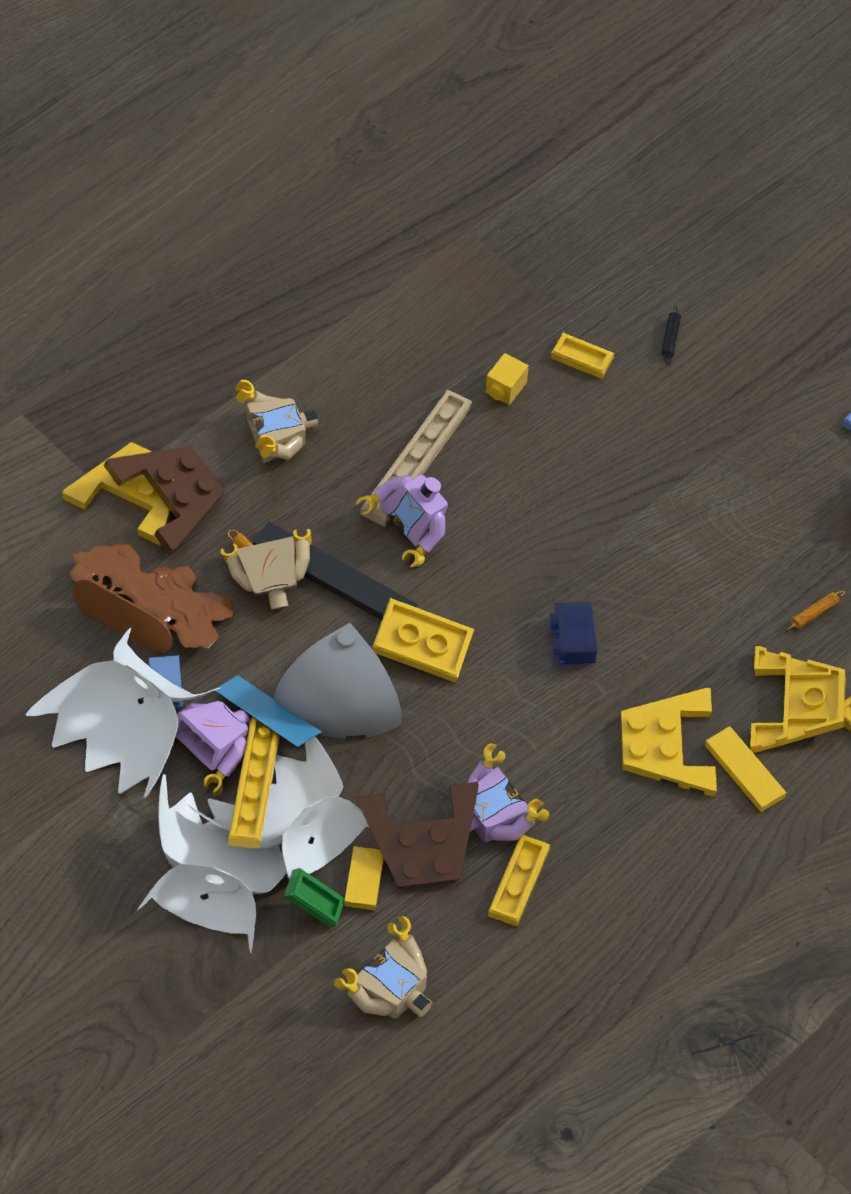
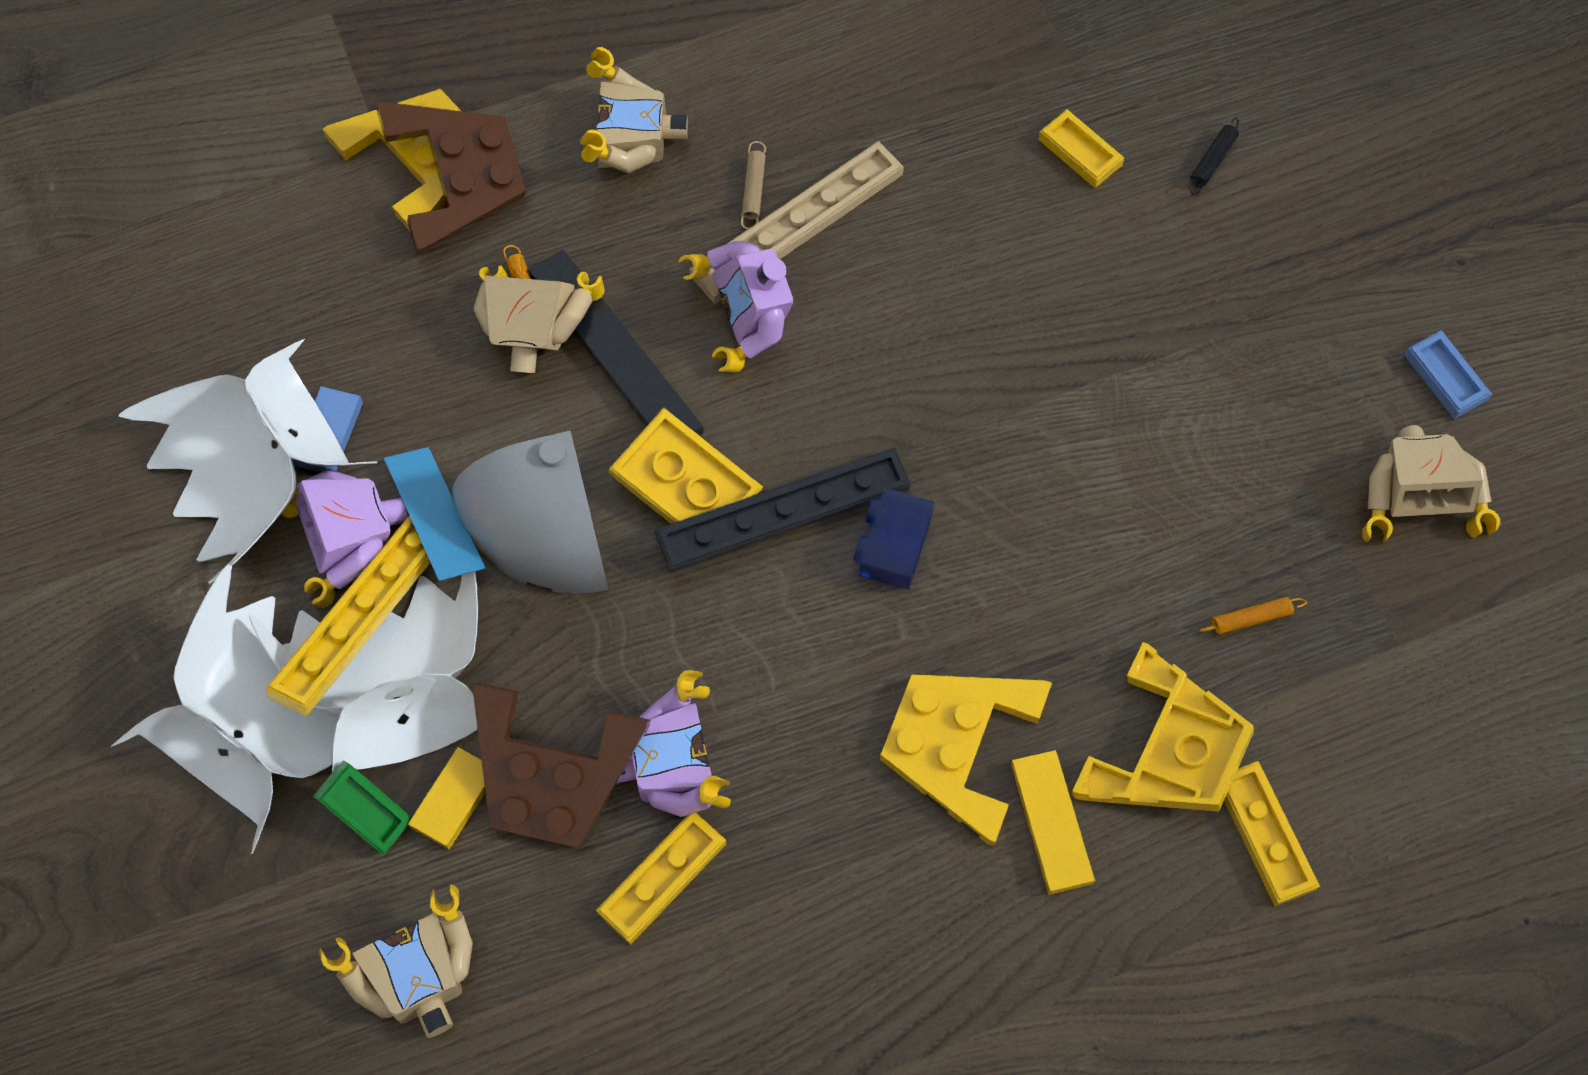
camera: 25 degrees right, 10 degrees up
(161, 593) = (375, 304): dark orange plant -> none
(376, 442) = (753, 184): none -> tan piece
(493, 639) = (780, 510): none -> black tile
(506, 379) = (961, 150): yellow brick -> none

